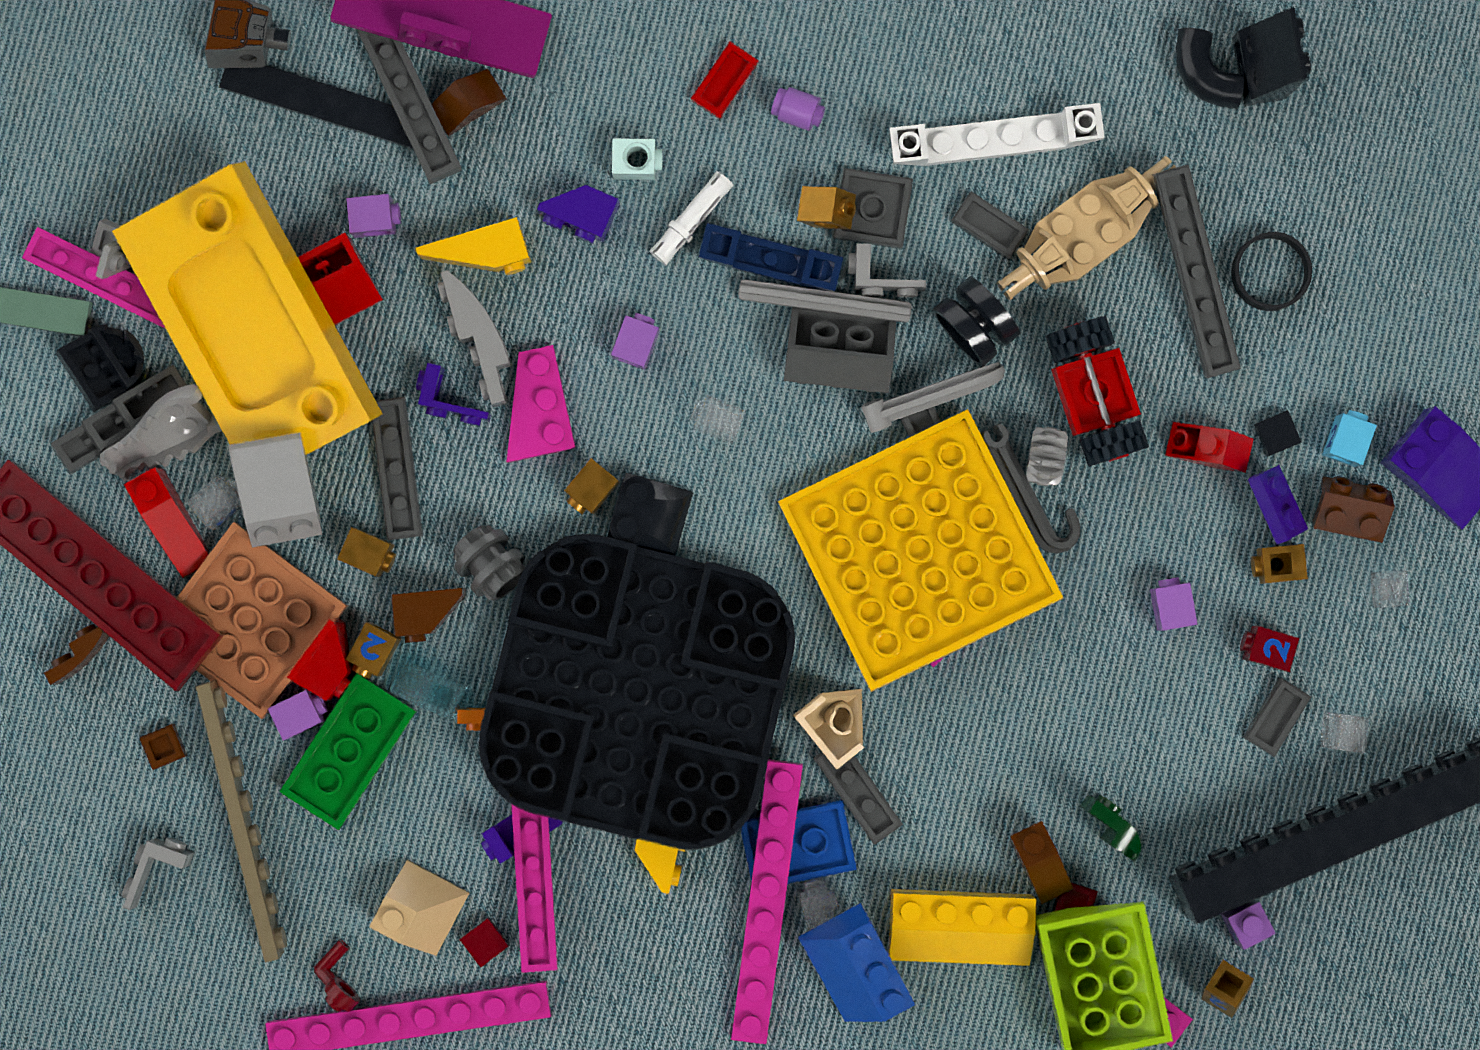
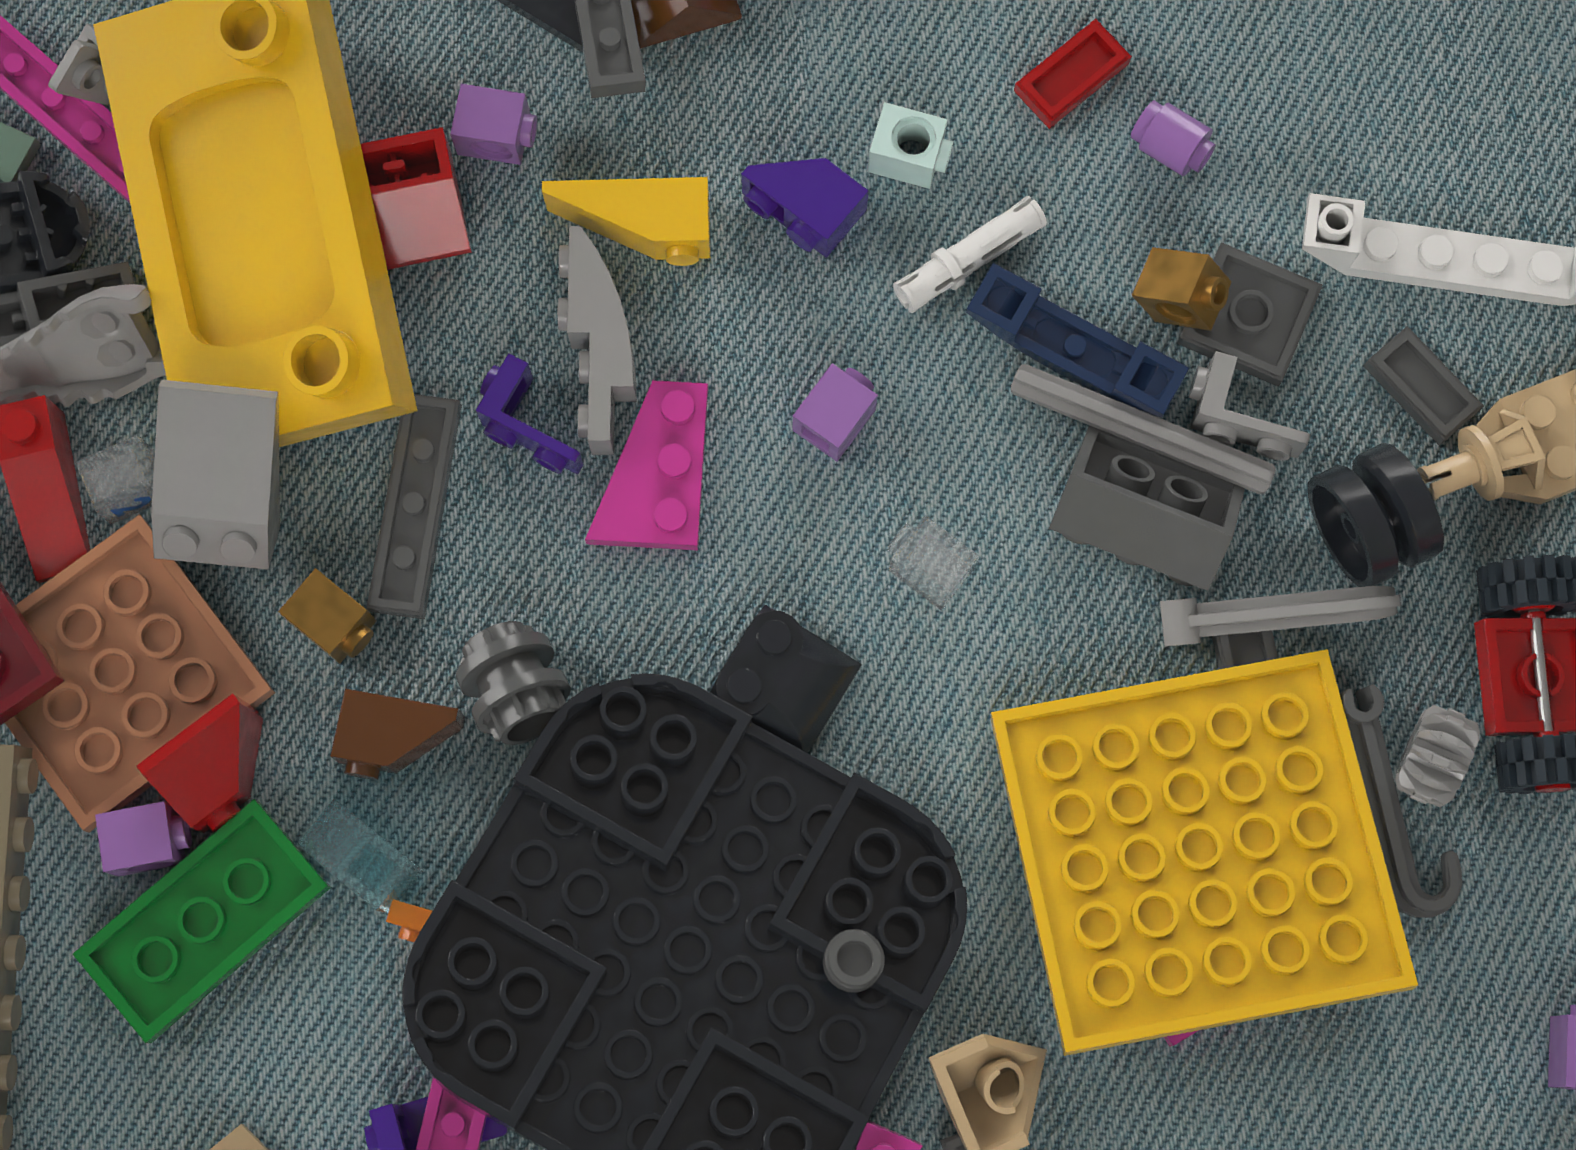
camera: 15 degrees right, 10 degrees down
(372, 650) = (290, 771): pearl gold brick -> none
(590, 487) = (704, 612): pearl gold brick -> none
(735, 672) = (853, 960): none -> dark grey tile

